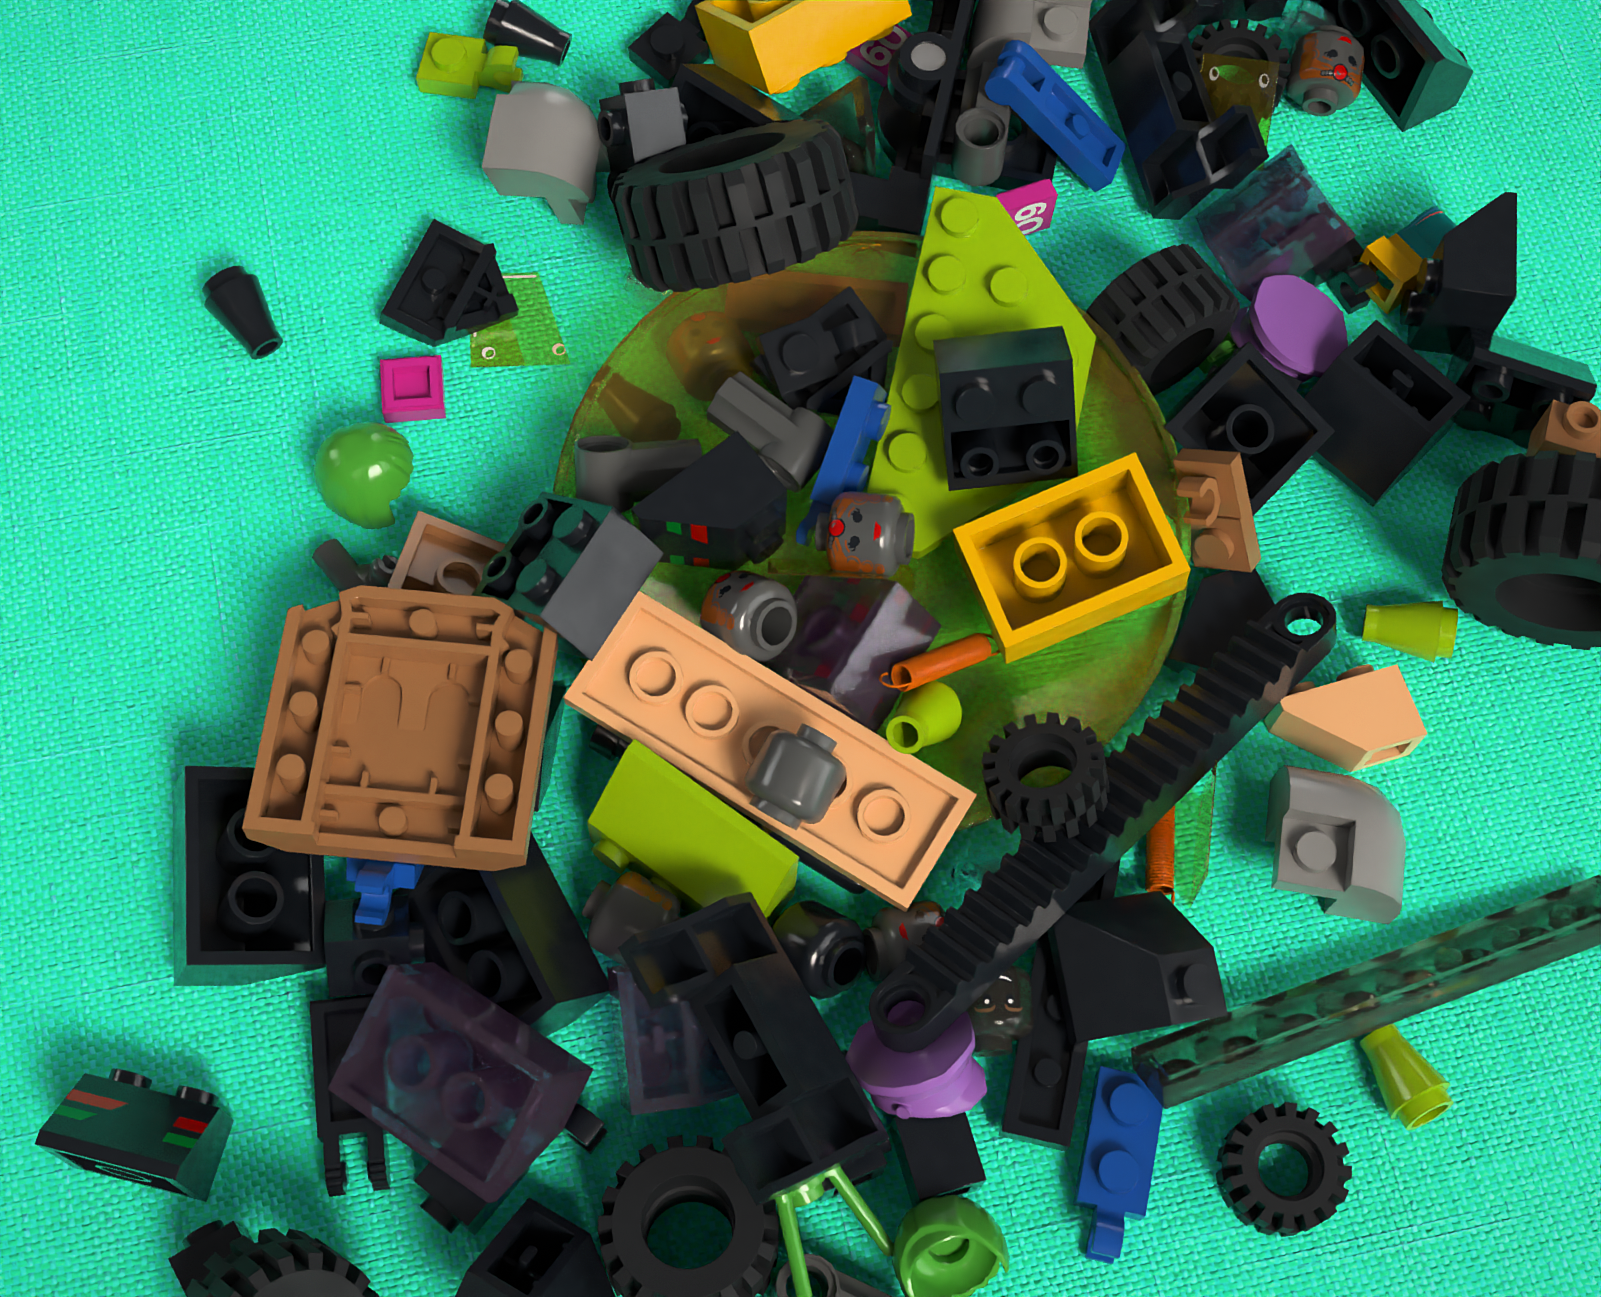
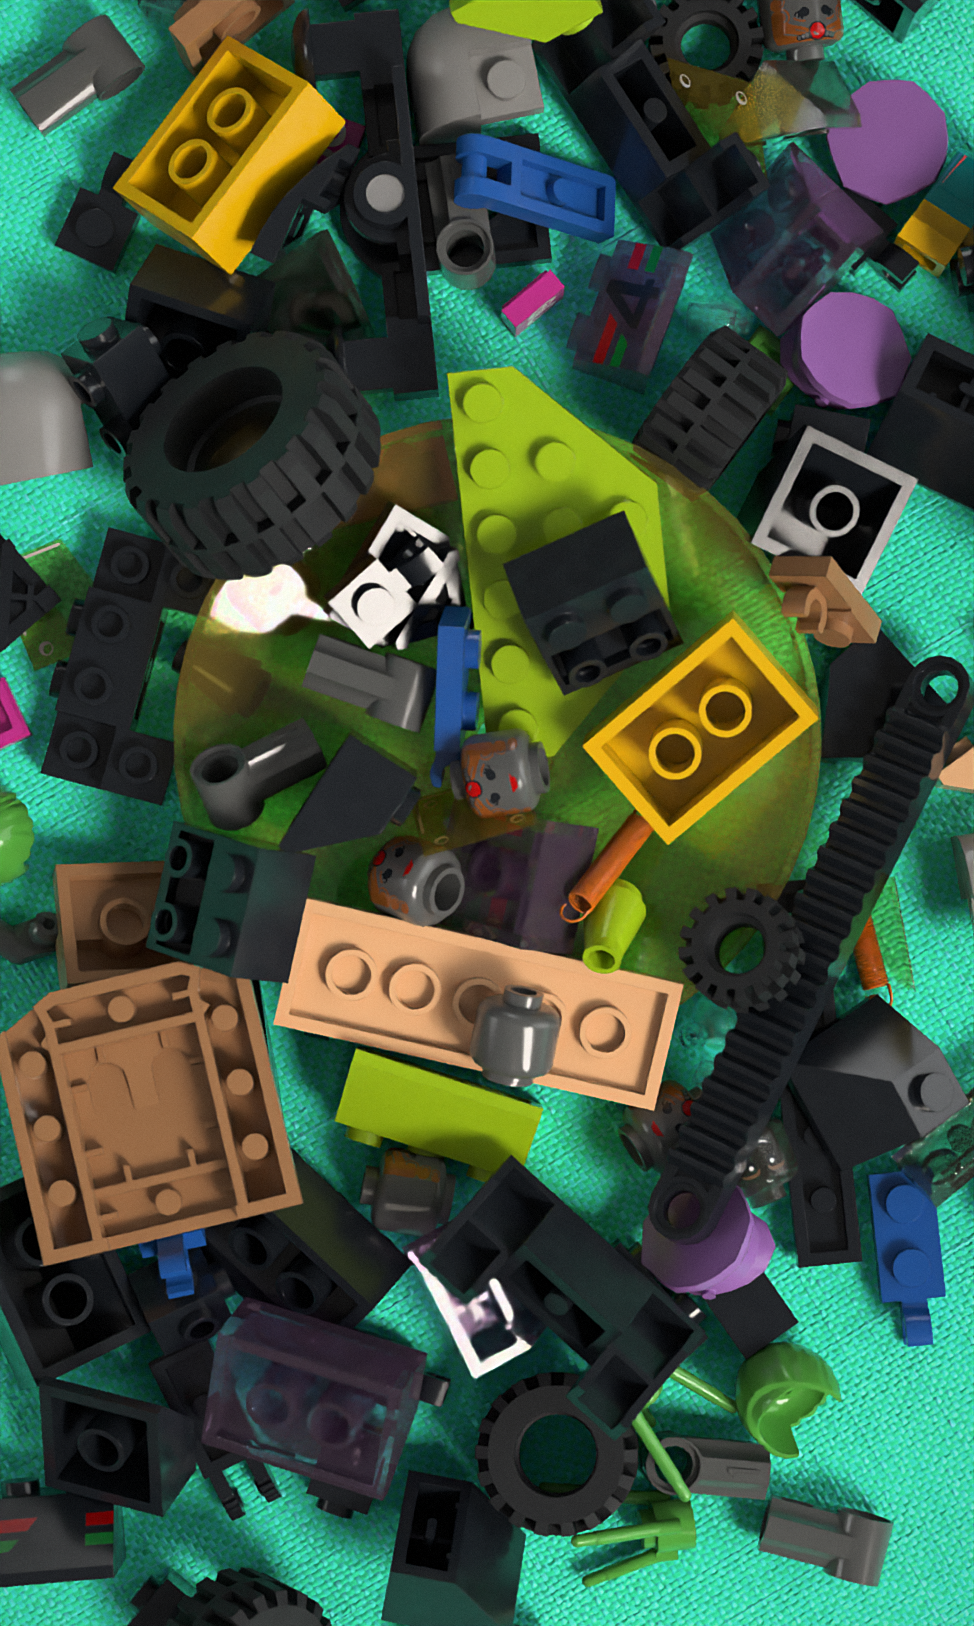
camera: 15 degrees left, 20 degrees up
(240, 1052) = (114, 1446): none -> black slope
(540, 376) = (112, 666): none -> black bracket
(822, 947) = (581, 1161): black head -> none
(852, 51) = (318, 190): none -> black slope
(1112, 233) = (631, 313): none -> slope
(1305, 120) = (802, 99): none -> clear smoke slope
(1377, 181) = (896, 147): none -> medium lavender hat

